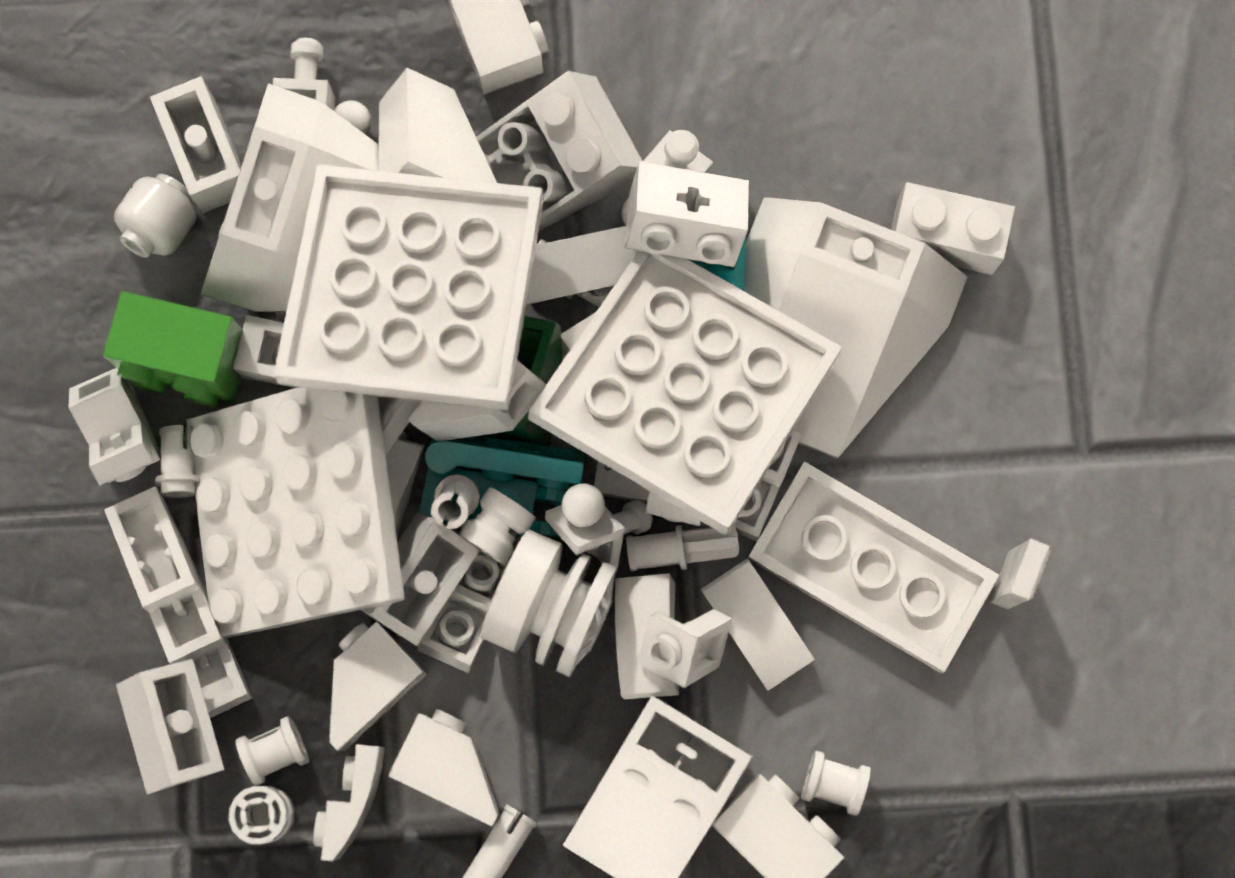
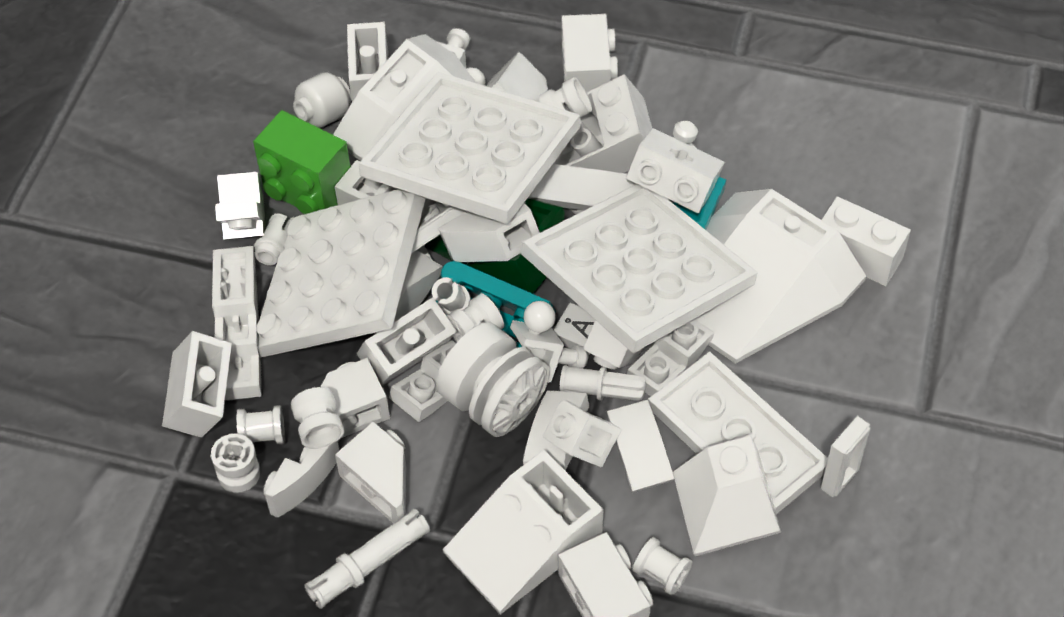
camera: 20 degrees right, 25 degrees down
(351, 745) = (315, 412): none -> white wheel
(501, 144) = (569, 97): none -> white wheel
(887, 671) = (725, 496): none -> white slope

